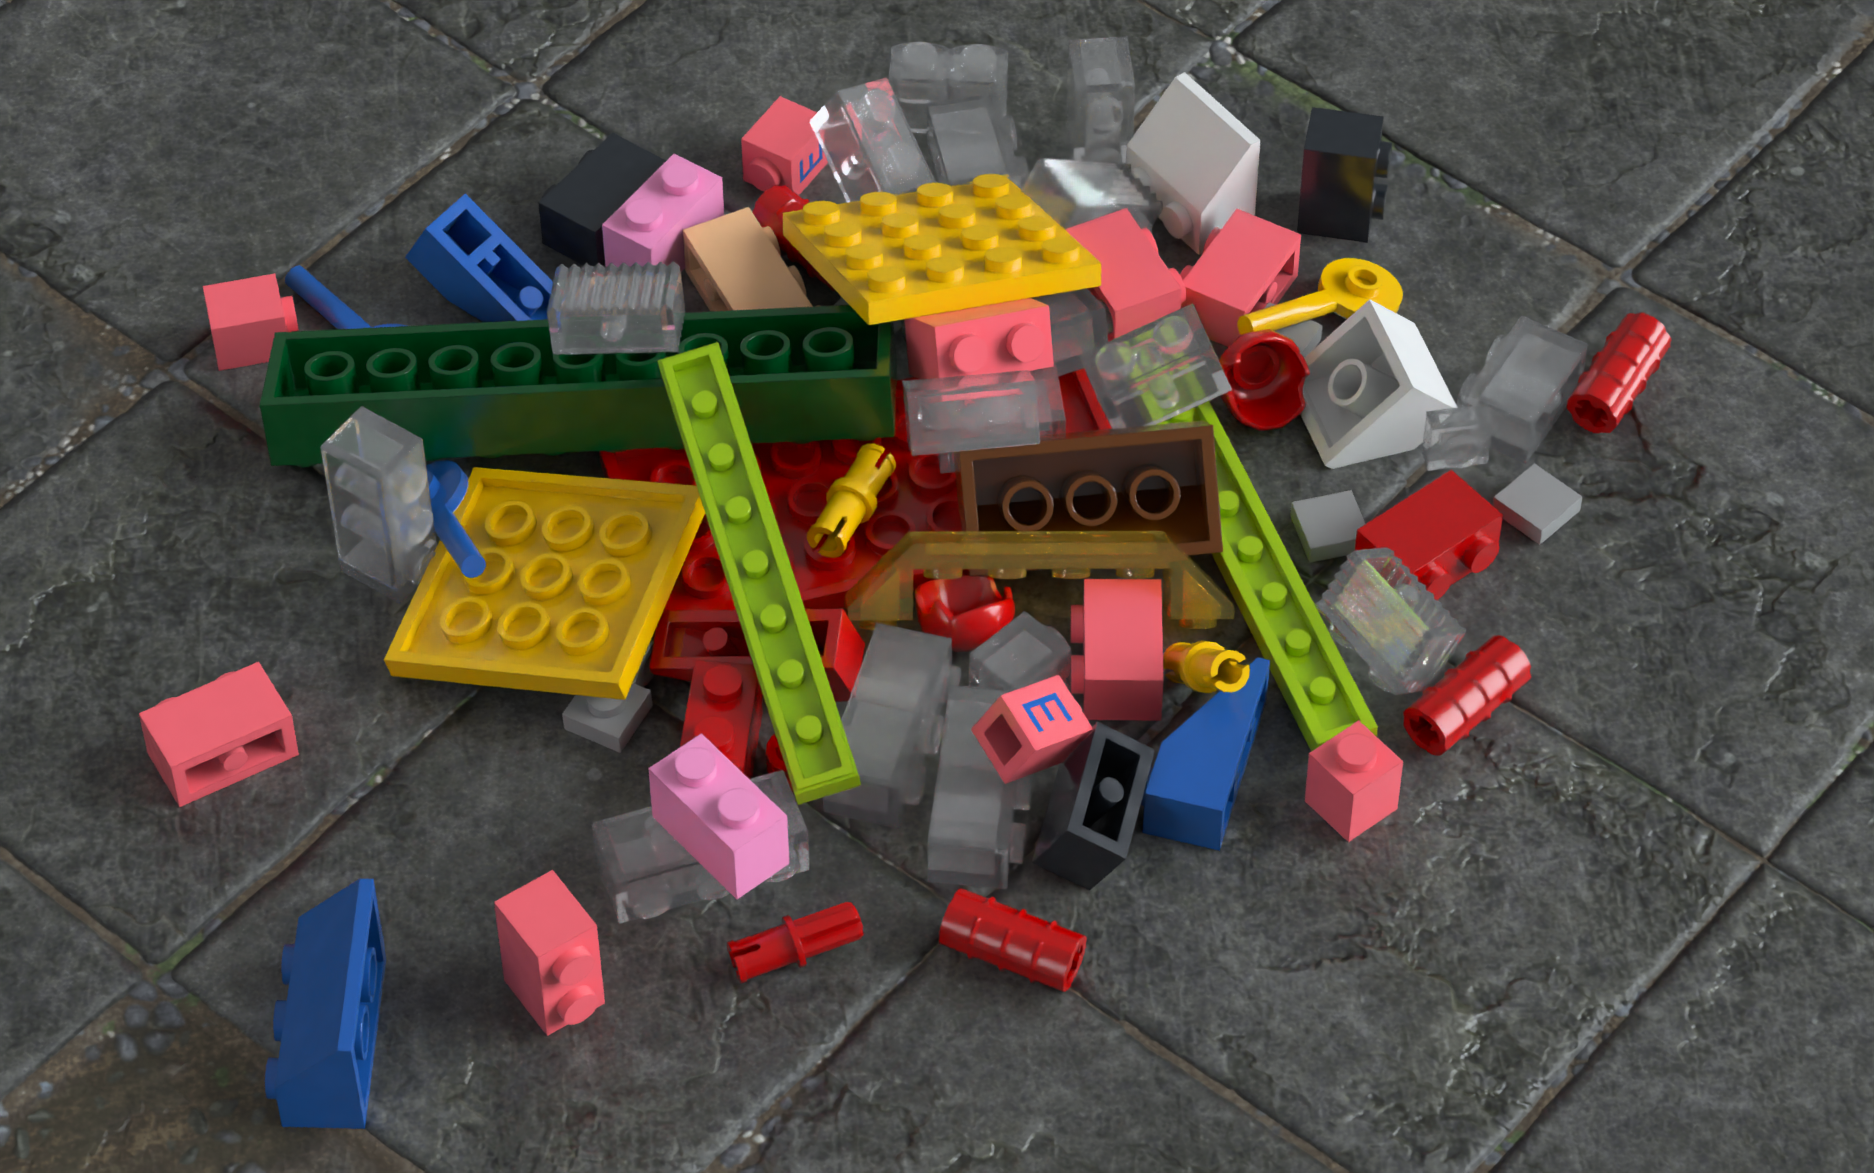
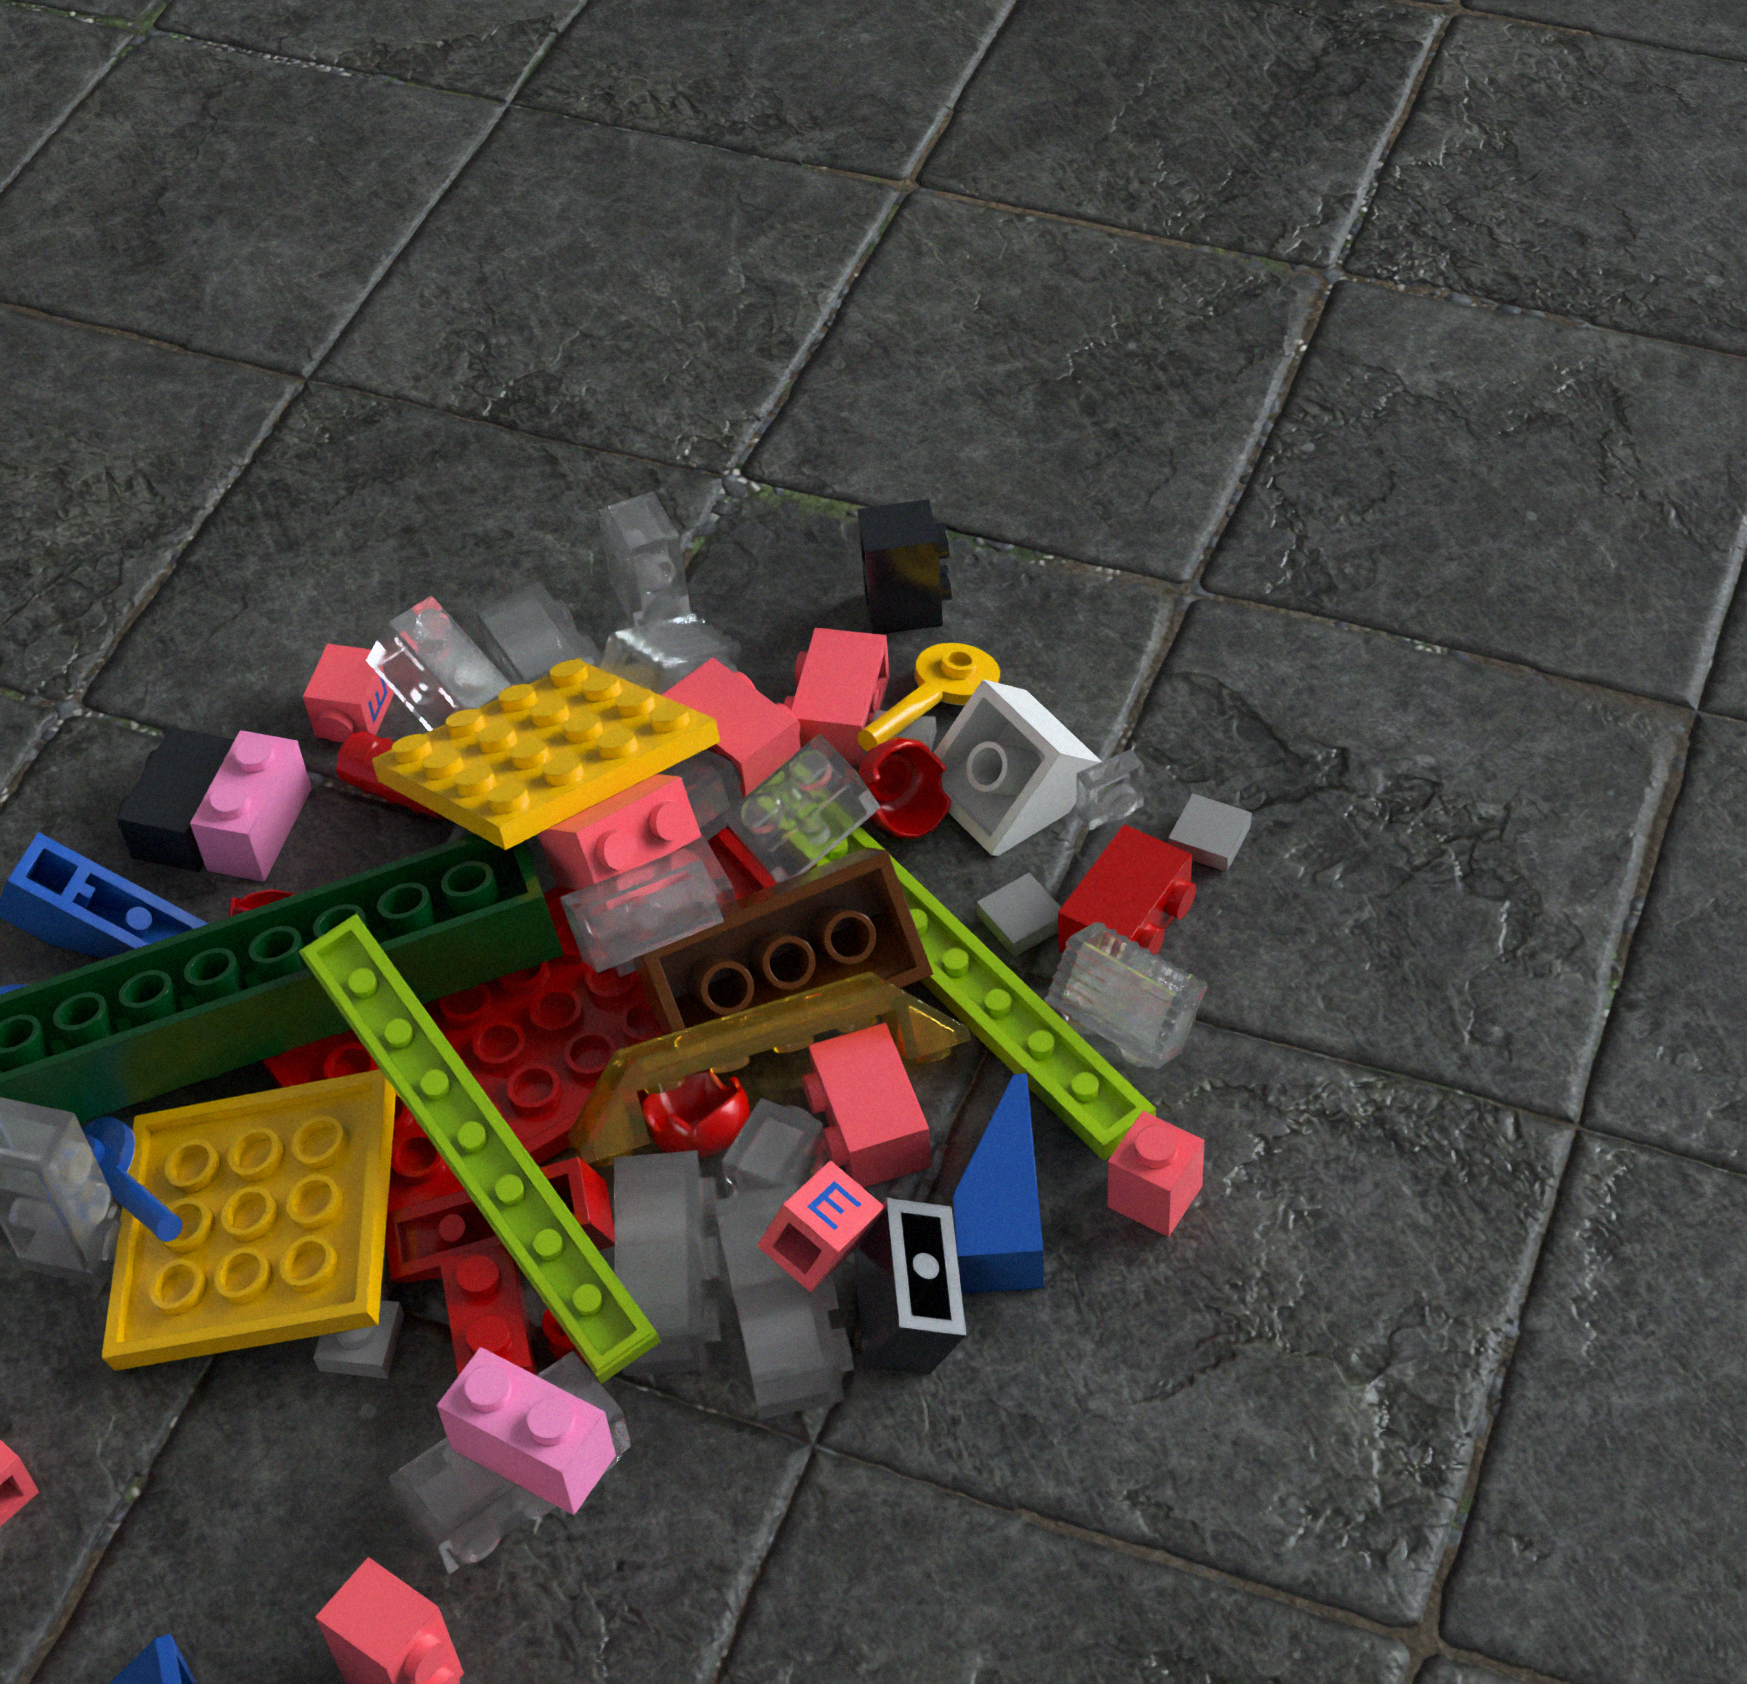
camera: 15 degrees left, 0 degrees up
(616, 309) = (236, 908): clear brick -> none
(740, 265) = (345, 826): light nougat brick -> none
(795, 941) = (647, 1536): red axle -> none
(851, 500) = (542, 1035): yellow pin -> none
(934, 73) = (475, 578): clear brick -> none
(1012, 939) = (875, 1460): red axle -> none
(1195, 161) = (759, 593): white slope -> none
(1205, 667) = (967, 1100): yellow pin -> none
(1467, 695) = (1226, 1047): red axle -> none
(1525, 385) = (1154, 717): clear brick -> none
(1618, 373) = (1235, 682): red axle -> none

